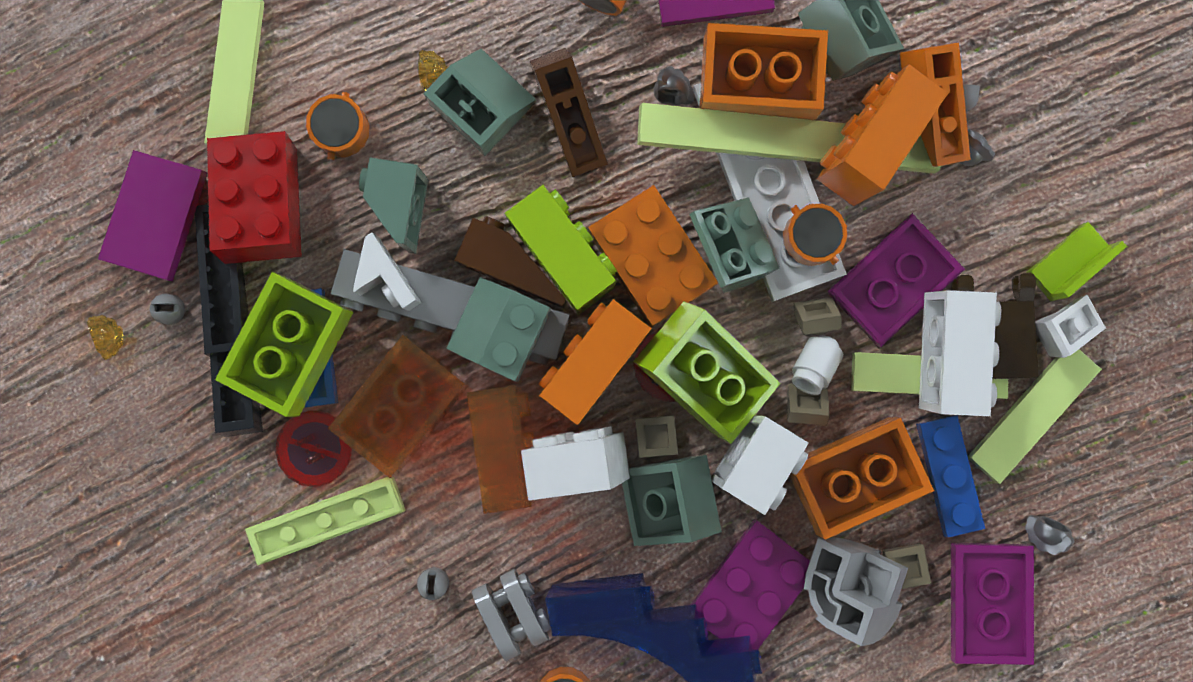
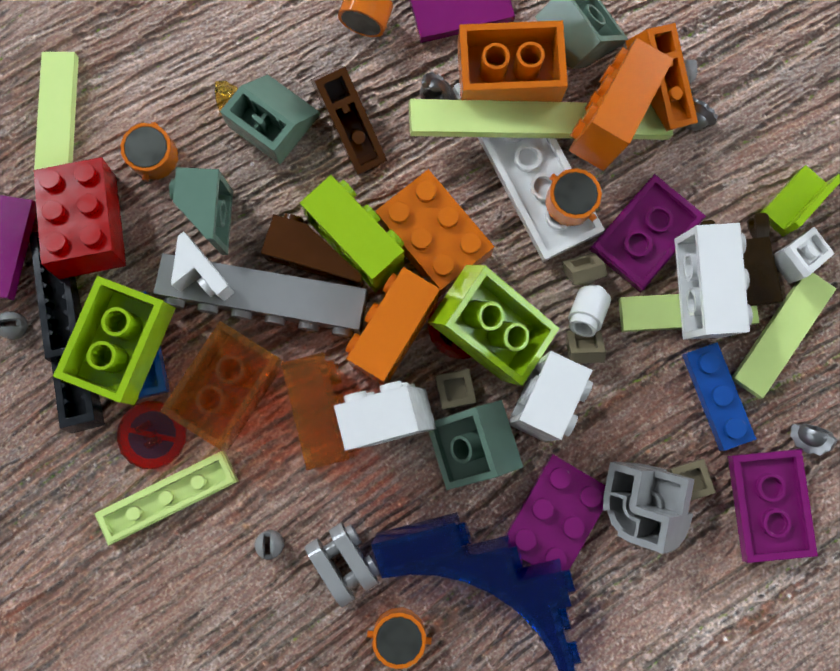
camera: 10 degrees left, 5 degrees down
(499, 329) = (306, 306): sand green slope -> none
(734, 243) = (504, 212): sand green slope -> none
(860, 477) = (640, 404): orange brick -> none

